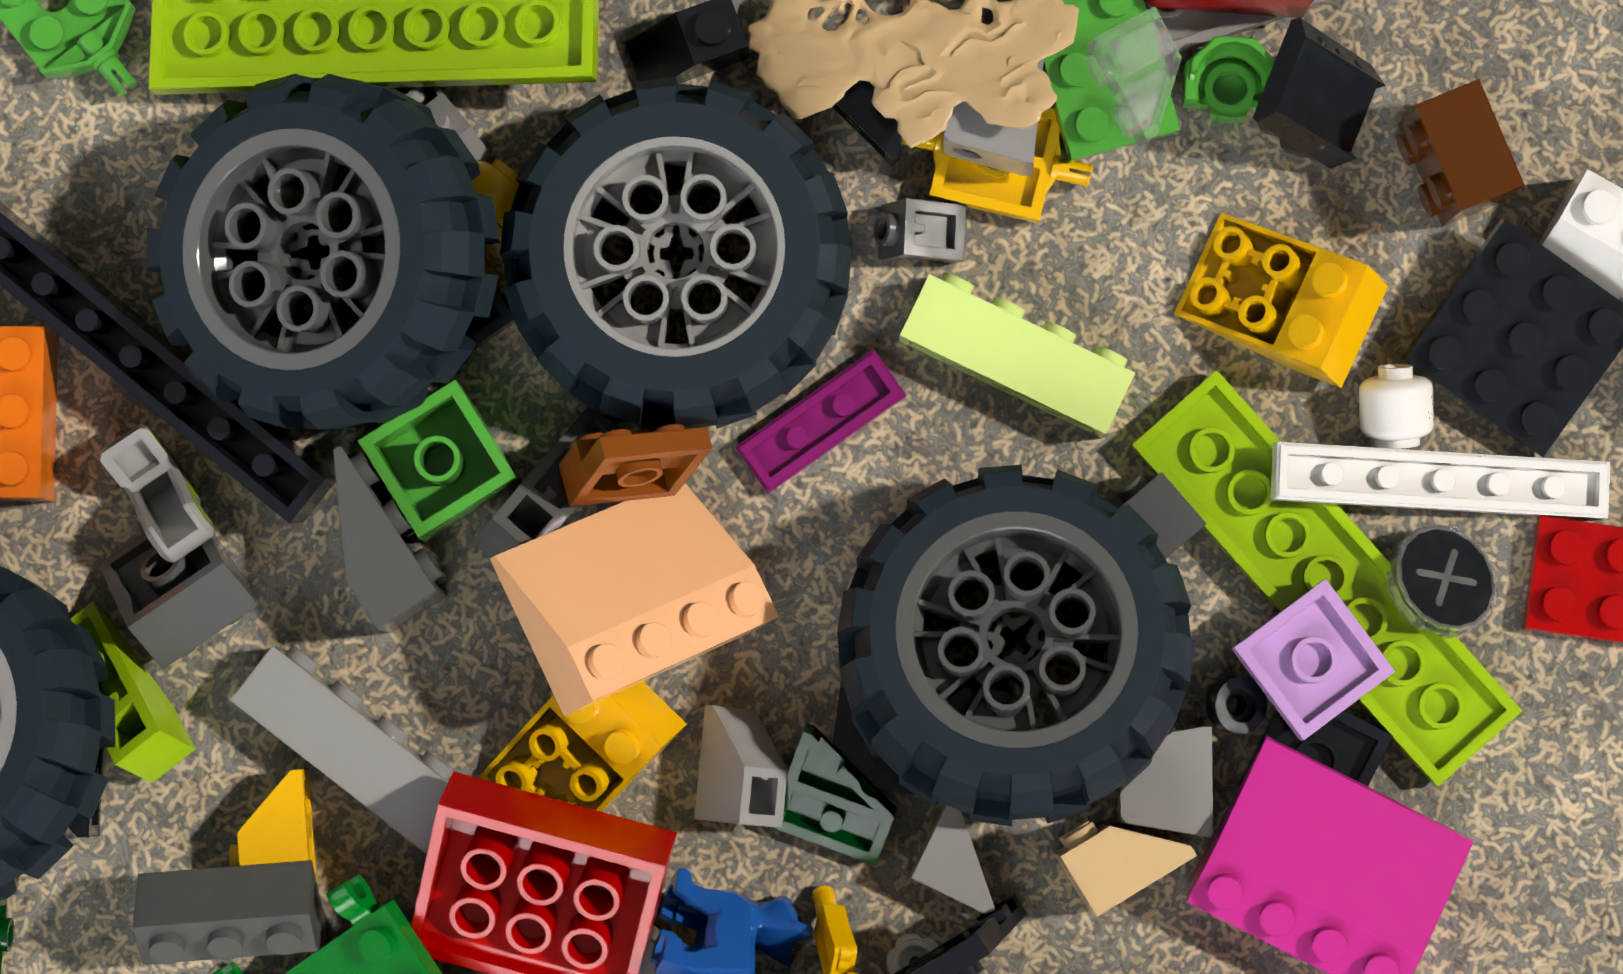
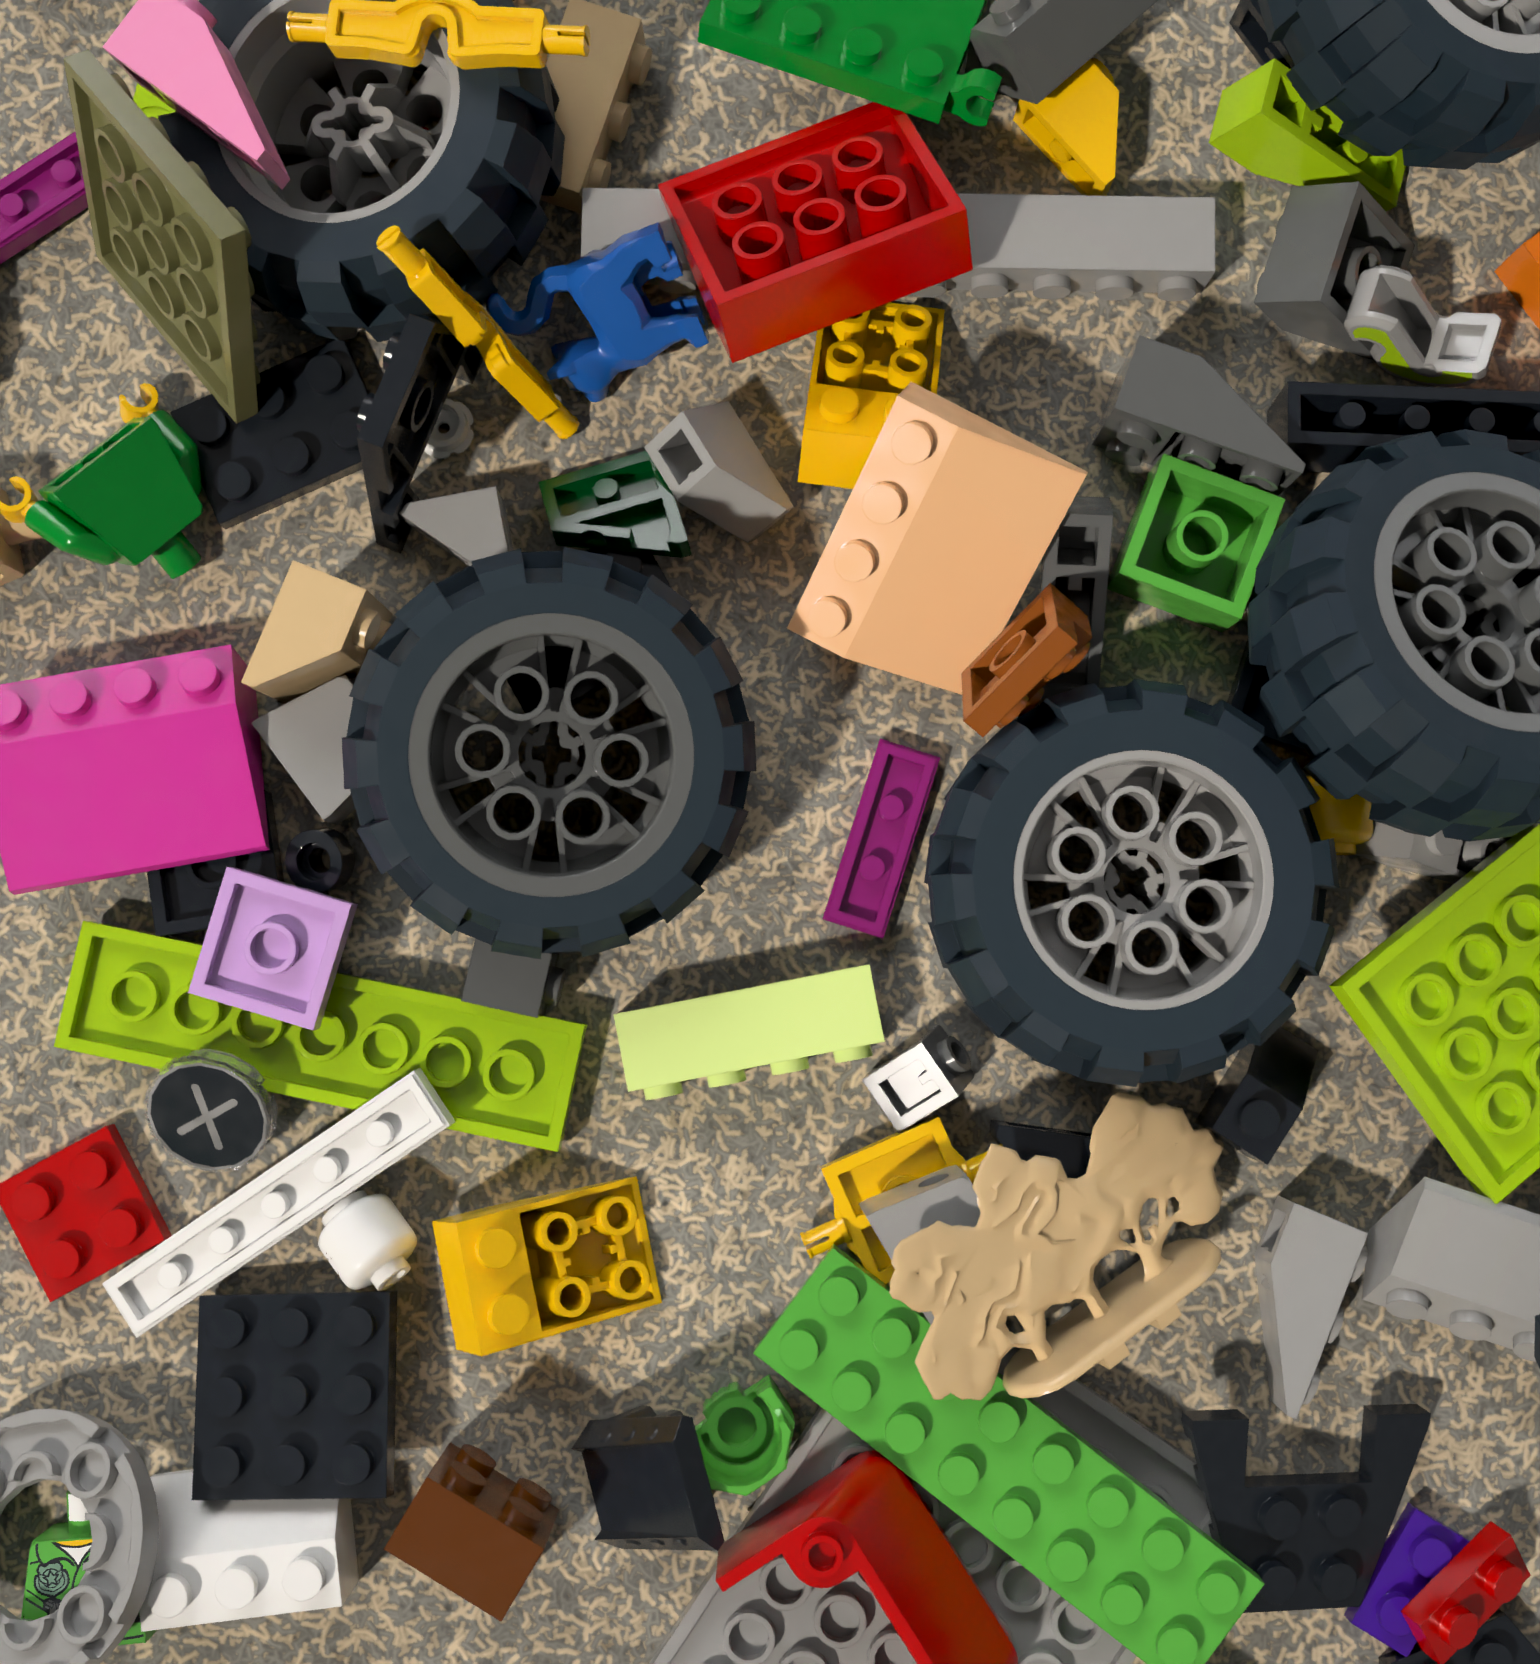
camera: 140 degrees right, 0 degrees up
(1139, 69) = (833, 1383): clear slope -> none

